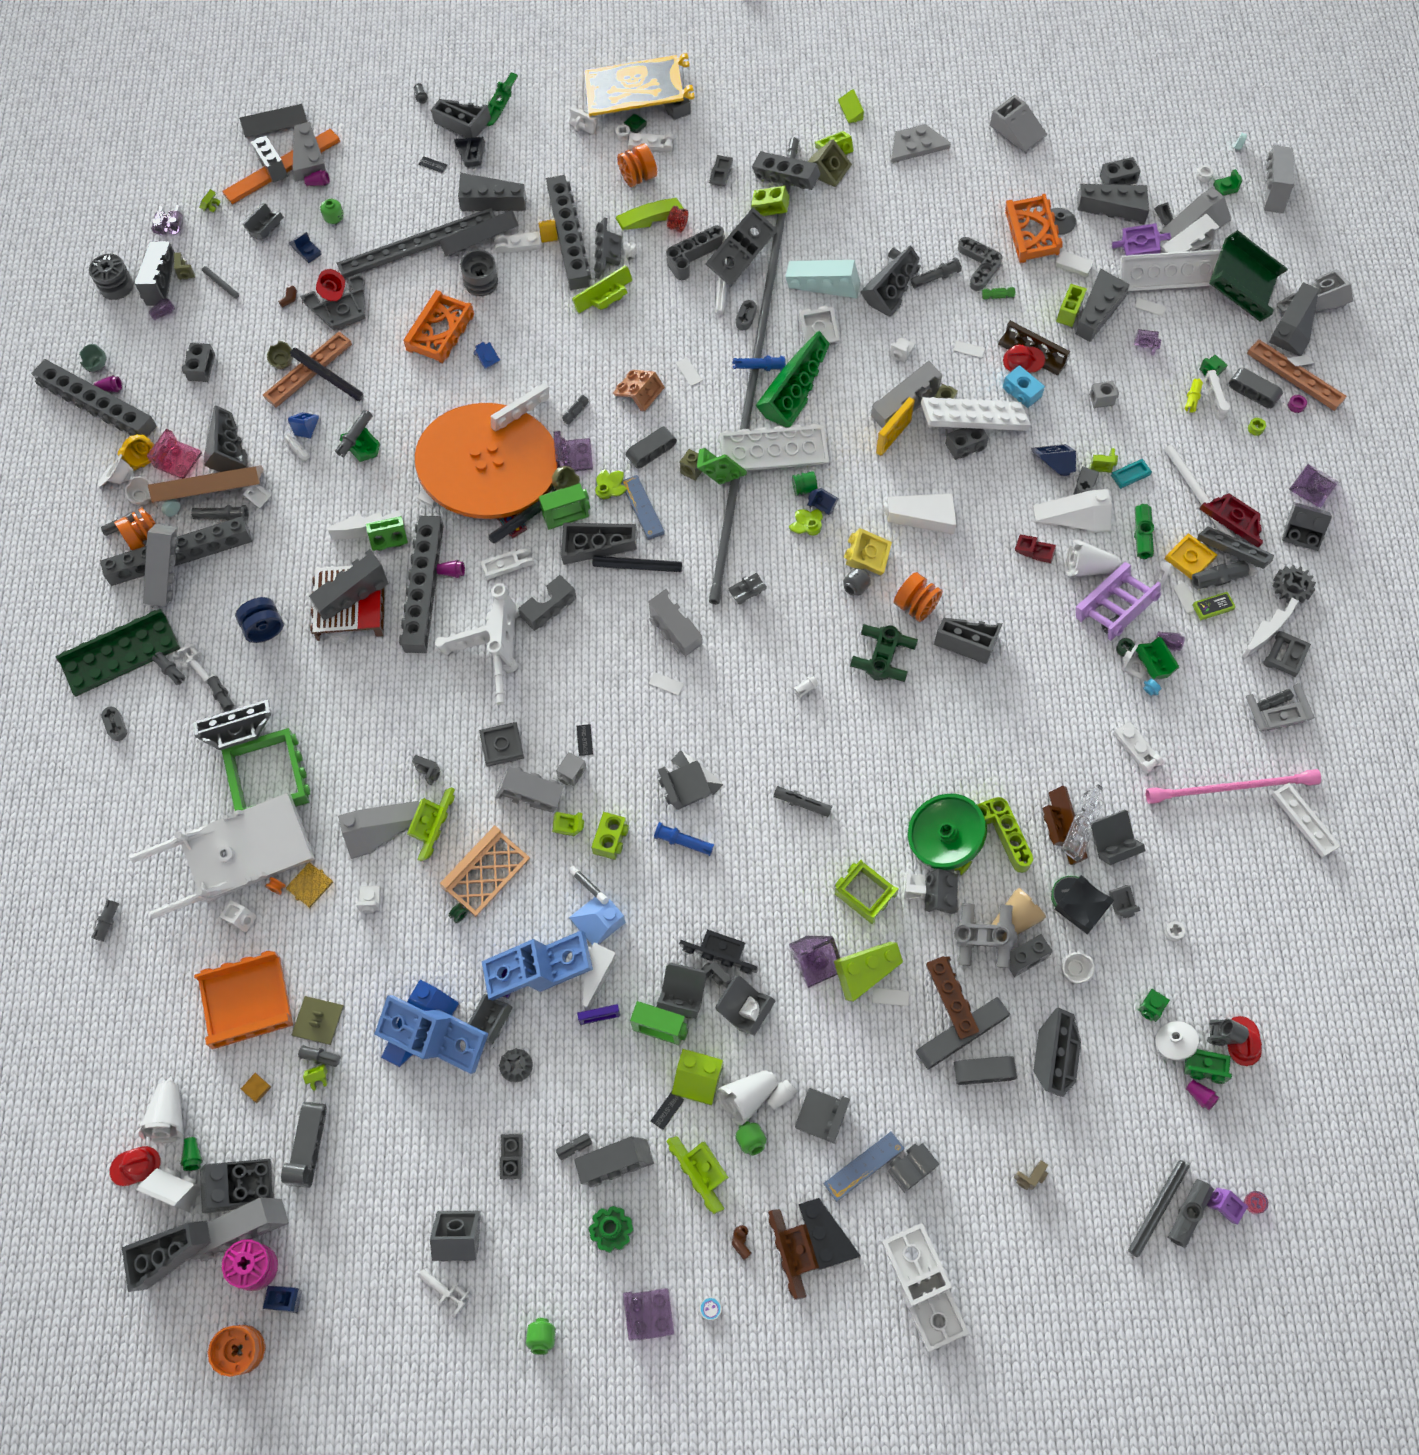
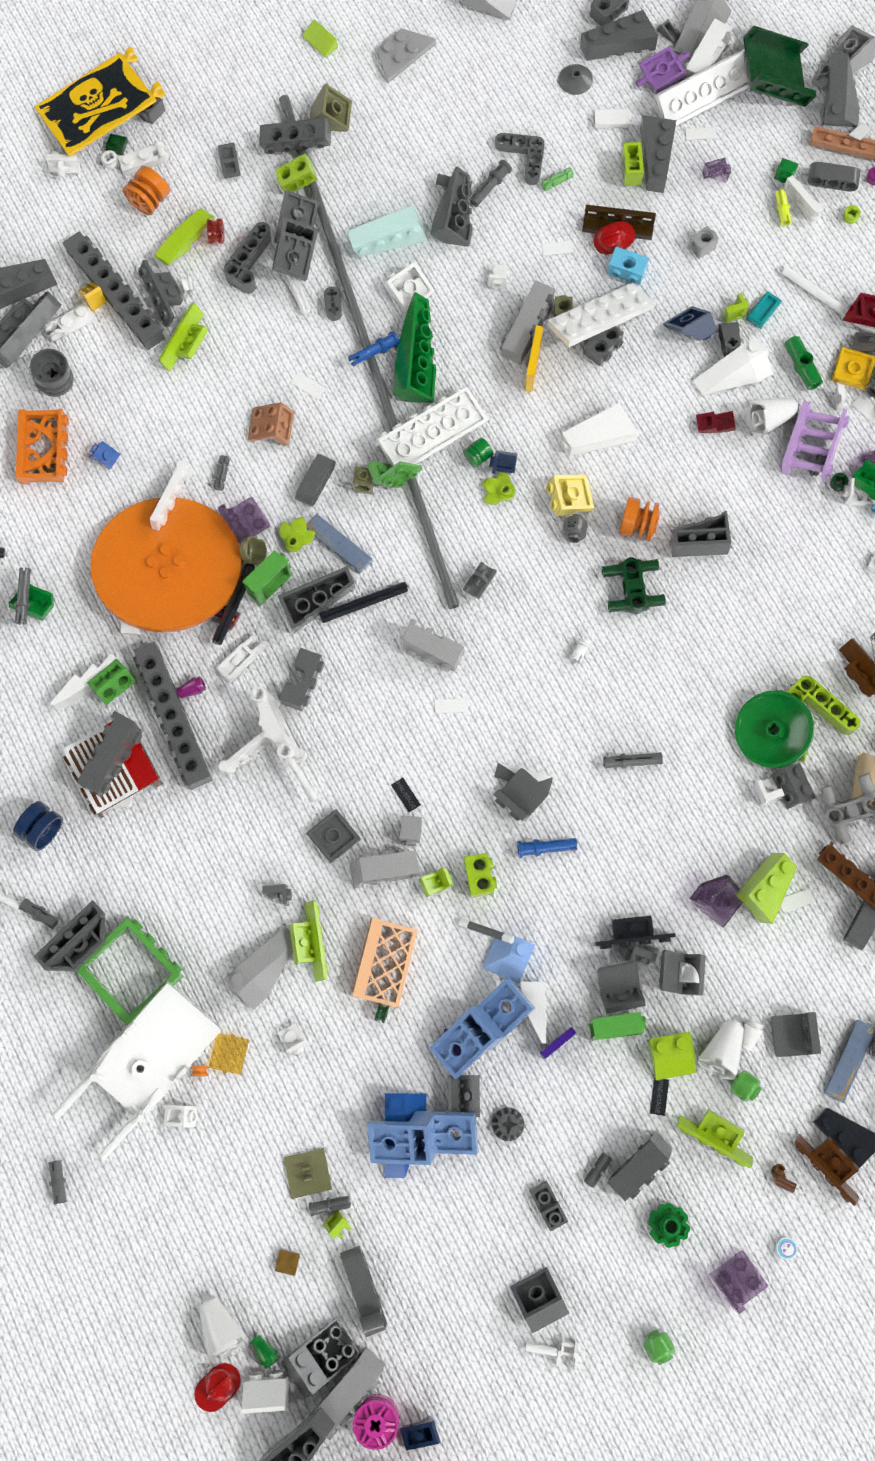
camera: 25 degrees left, 10 degrees up
(244, 999) = (231, 1189): orange panel -> none
(841, 138) = (329, 77): lime bracket -> none
(855, 904) = (708, 819): lime window -> none
(1015, 212) = (563, 82): orange fence -> none

